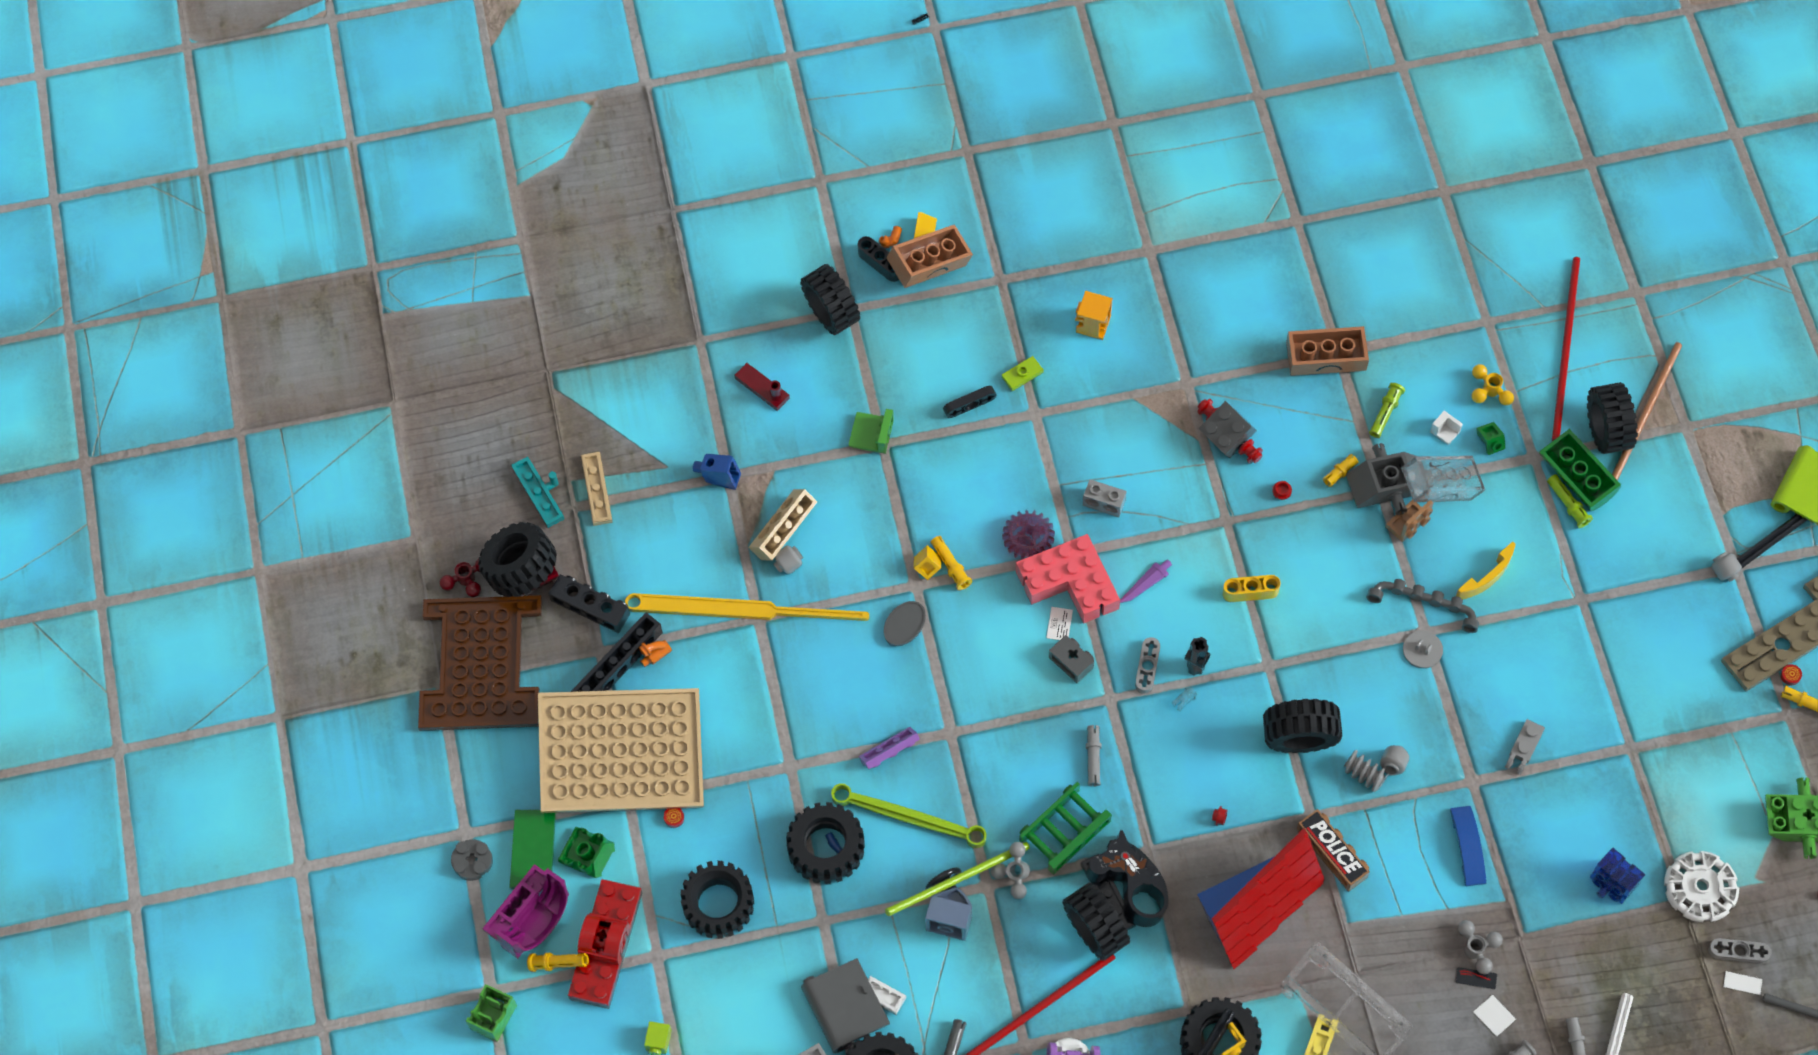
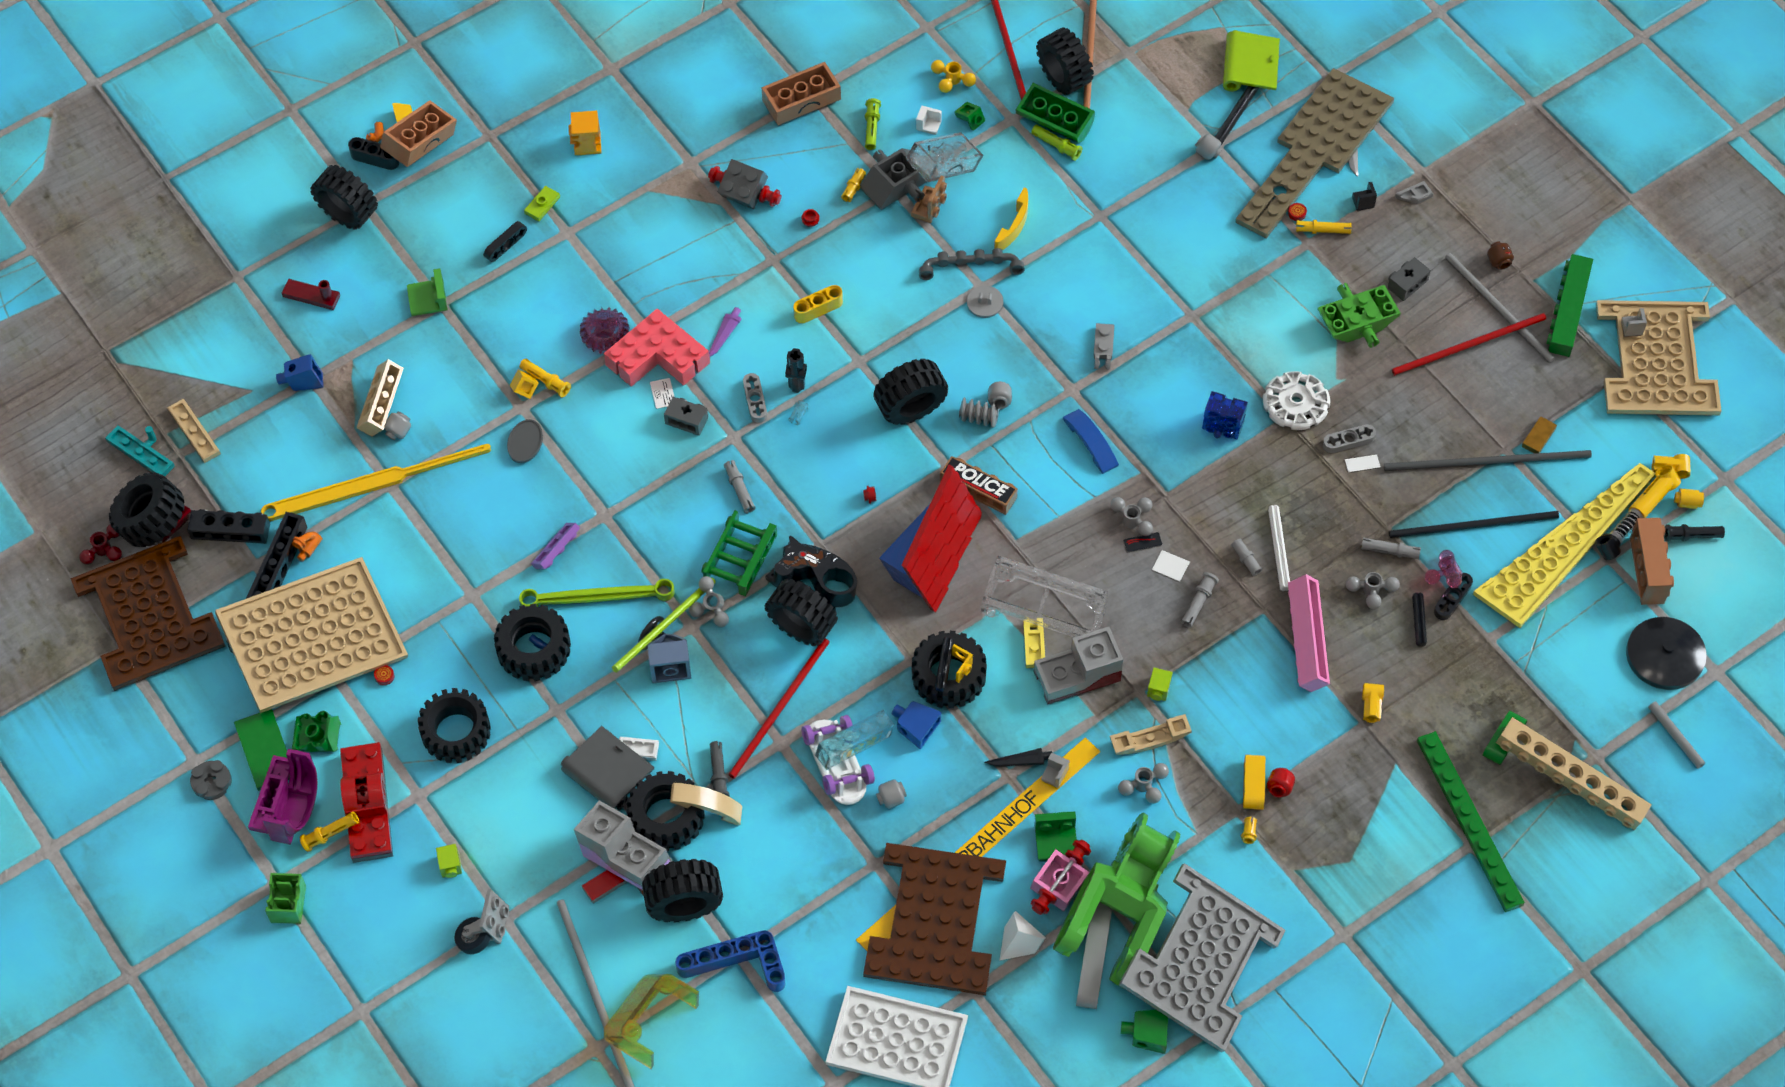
camera: 25 degrees left, 5 degrees down
(1104, 498) = (658, 277): light grey brick -> none

